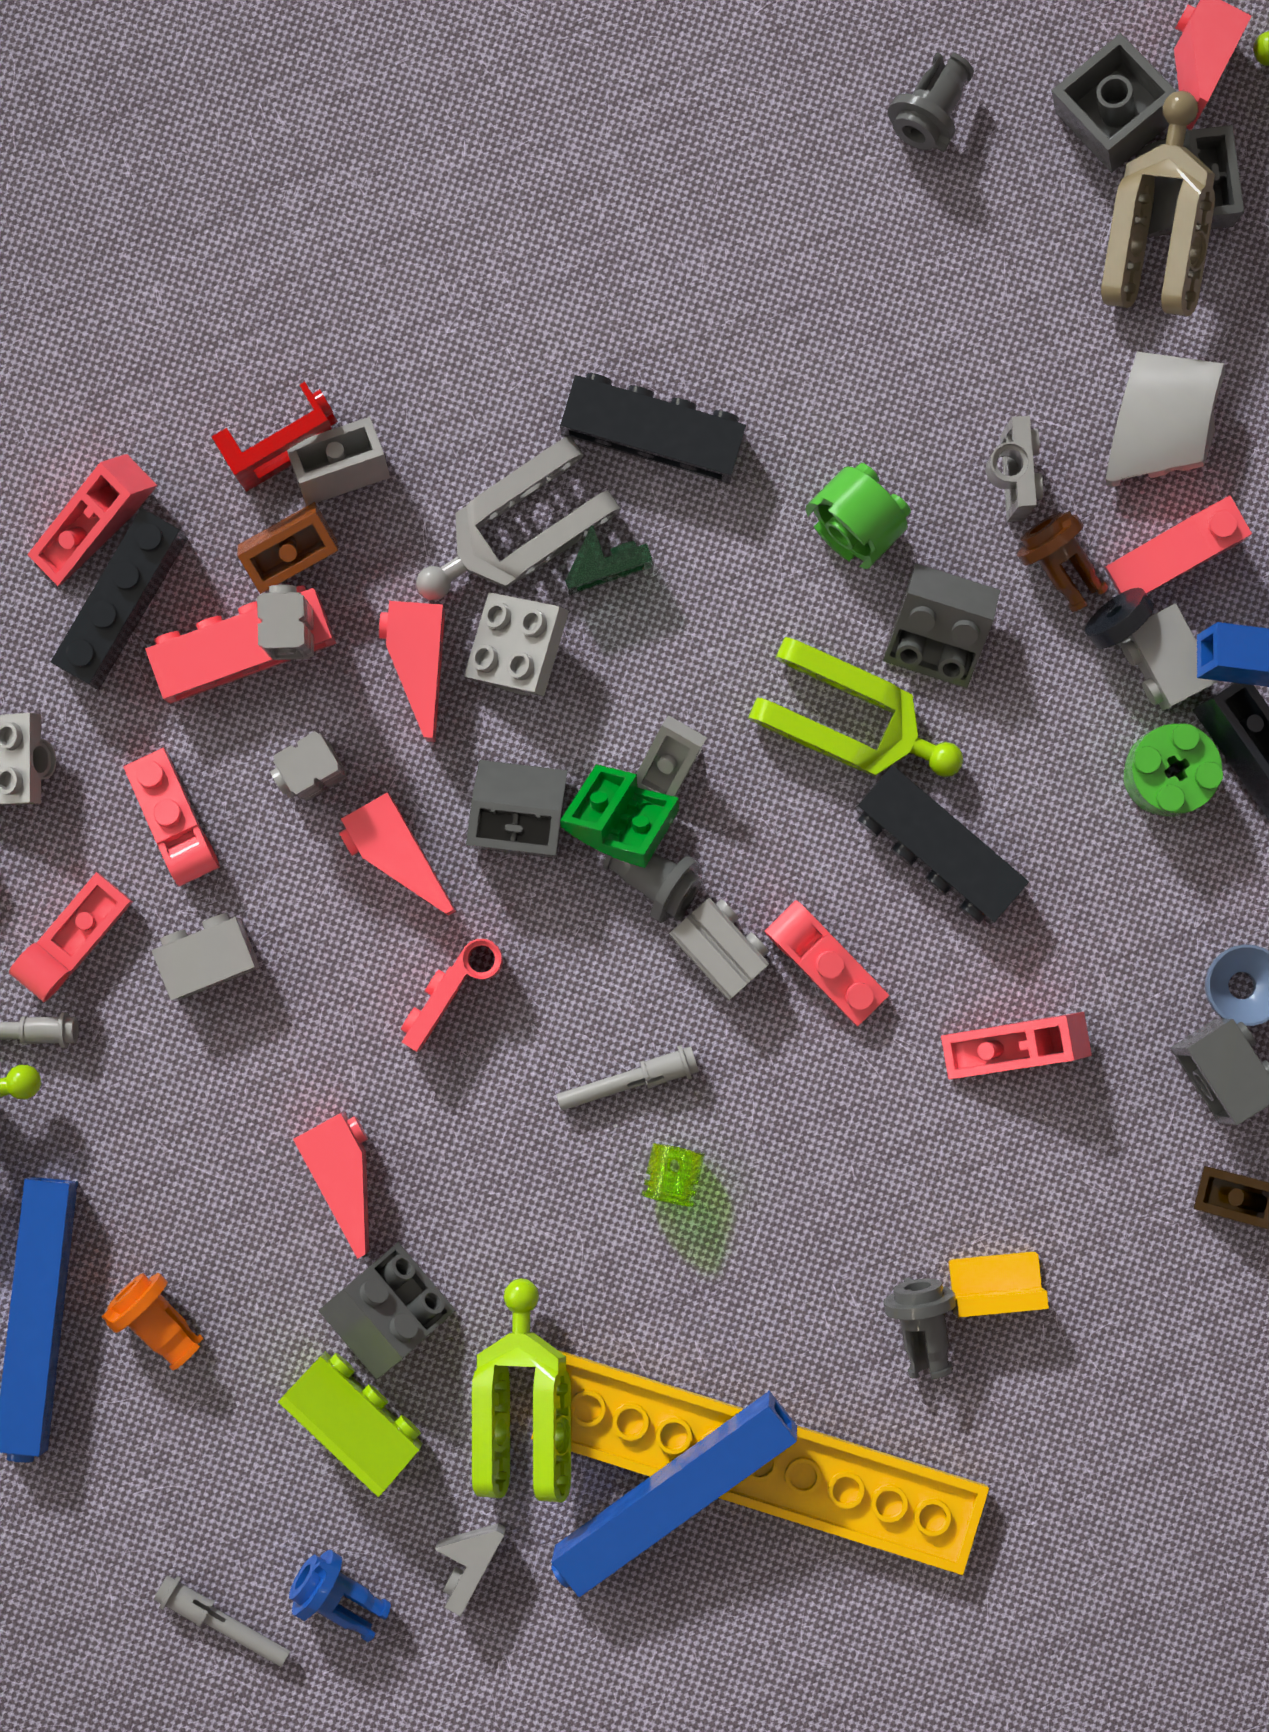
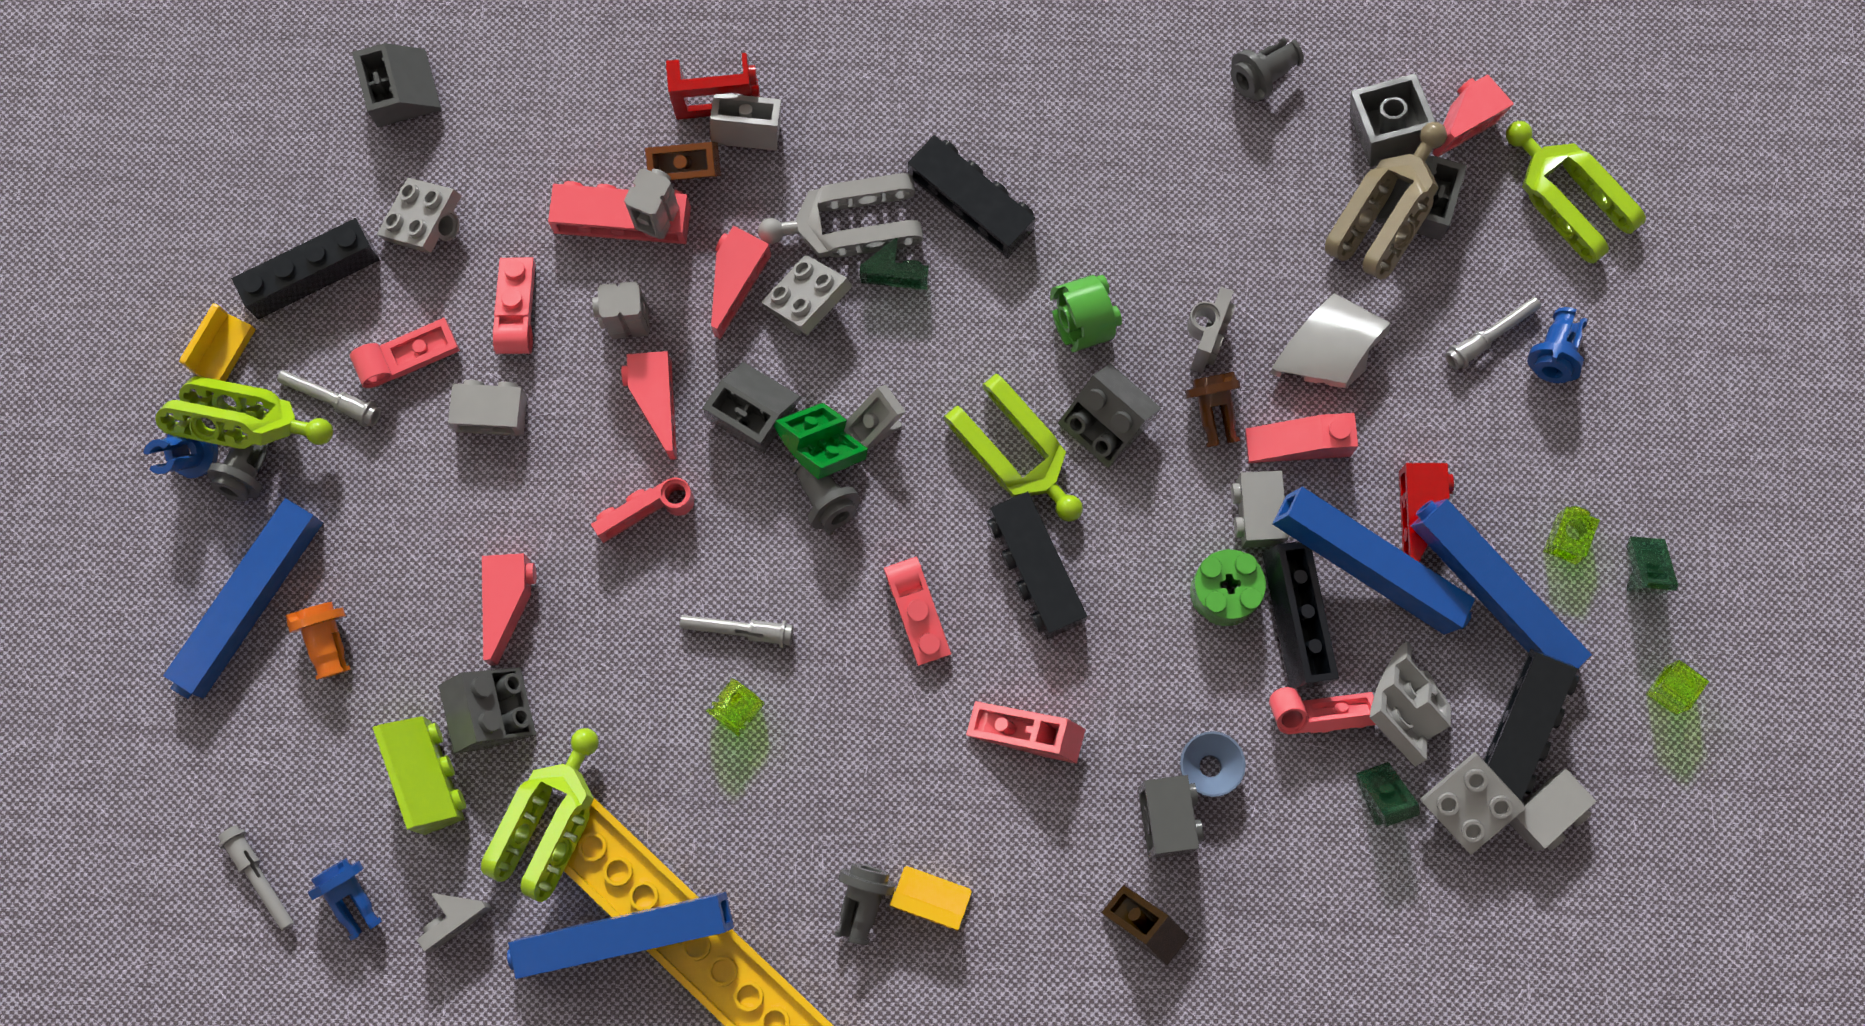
camera: 30 degrees right, 10 degrees down
(92, 517) = (565, 86): coral slope -> none
(119, 599) = (554, 147): black brick -> none
(720, 948) = (846, 564): light grey brick -> none
(1119, 618) = (1237, 464): black piece -> none

